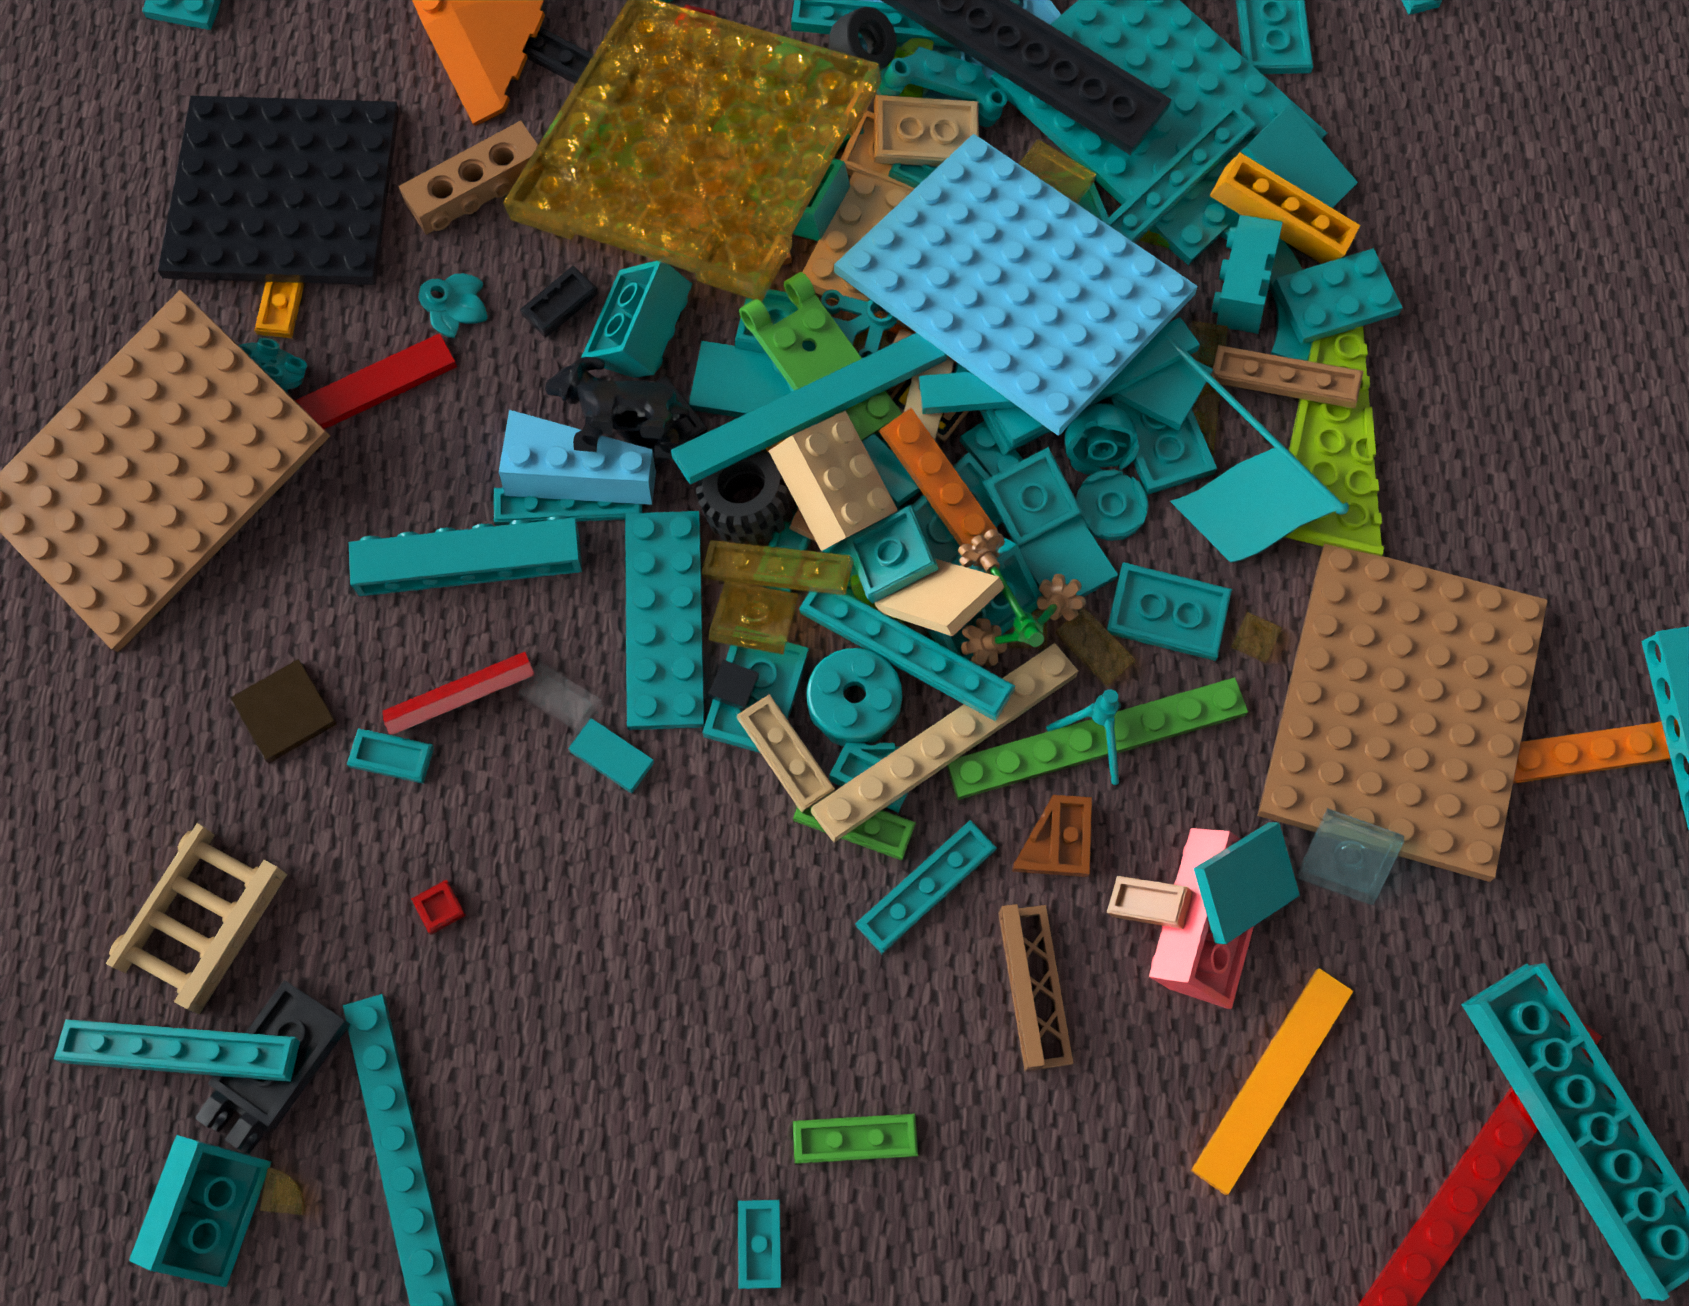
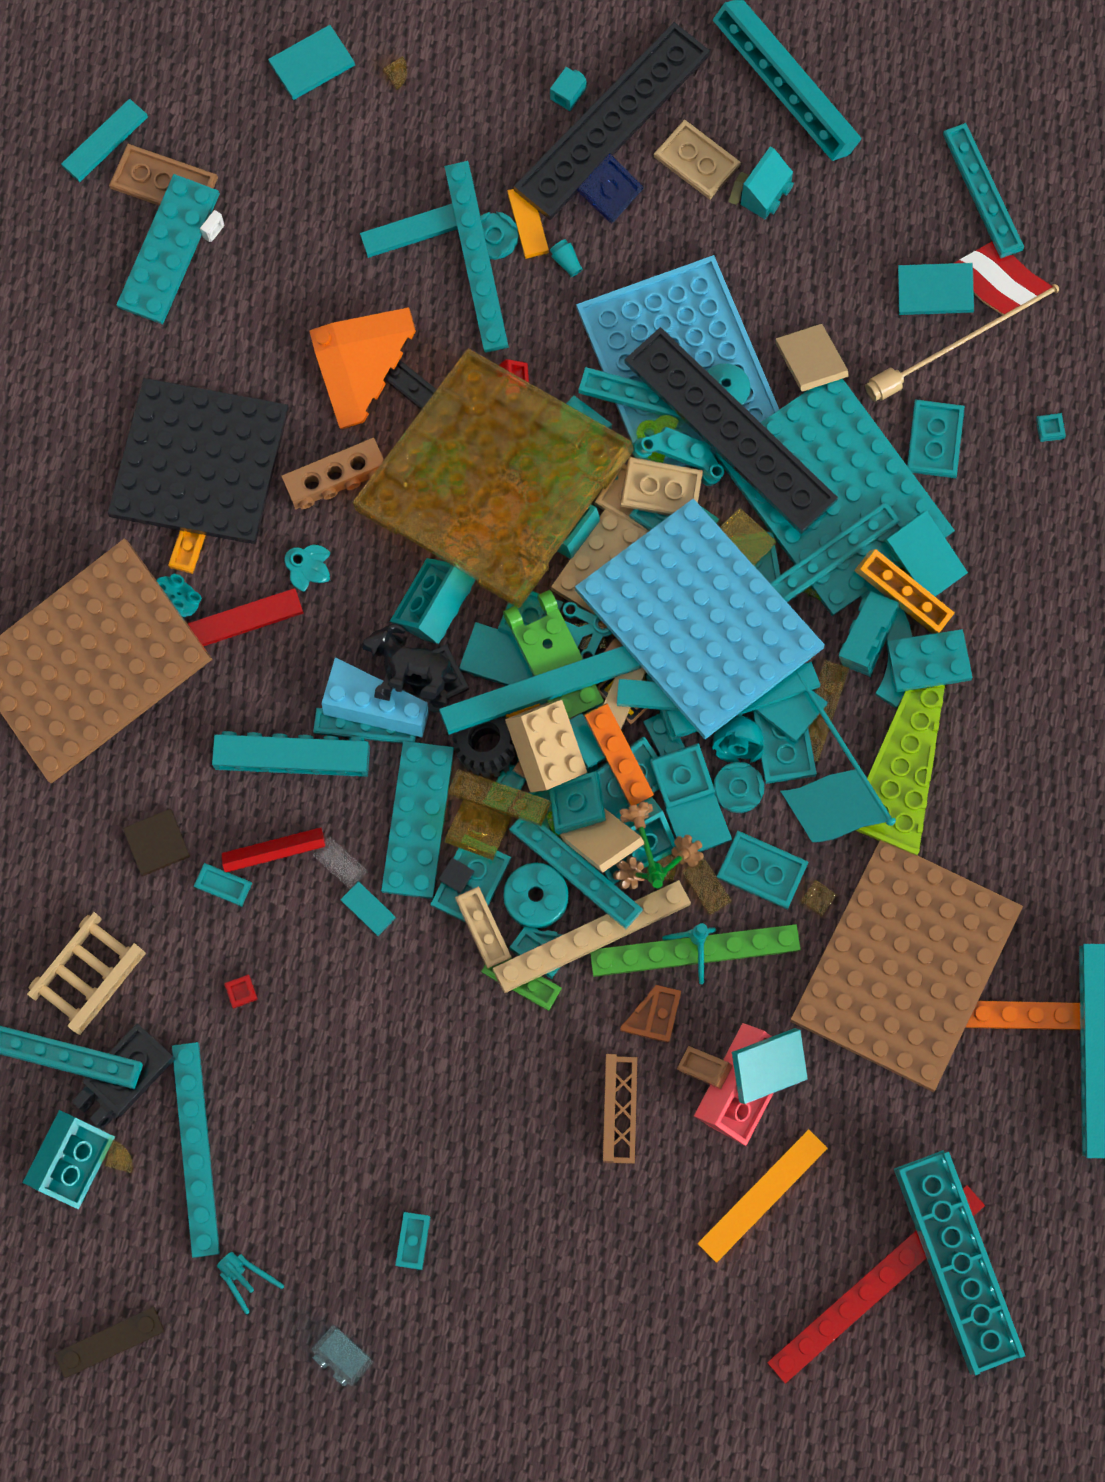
camera: 15 degrees right, 5 degrees up
(559, 301) = (381, 577): black plate -> none
(855, 1138) = (485, 1186): bright green tile -> none
(875, 30) = (639, 416): black tyre -> none
(925, 887) = (561, 1031): teal tile -> none
(1287, 376) = (879, 715): medium nougat tile -> none
(1350, 856) = (844, 1060): clear light blue tile -> none

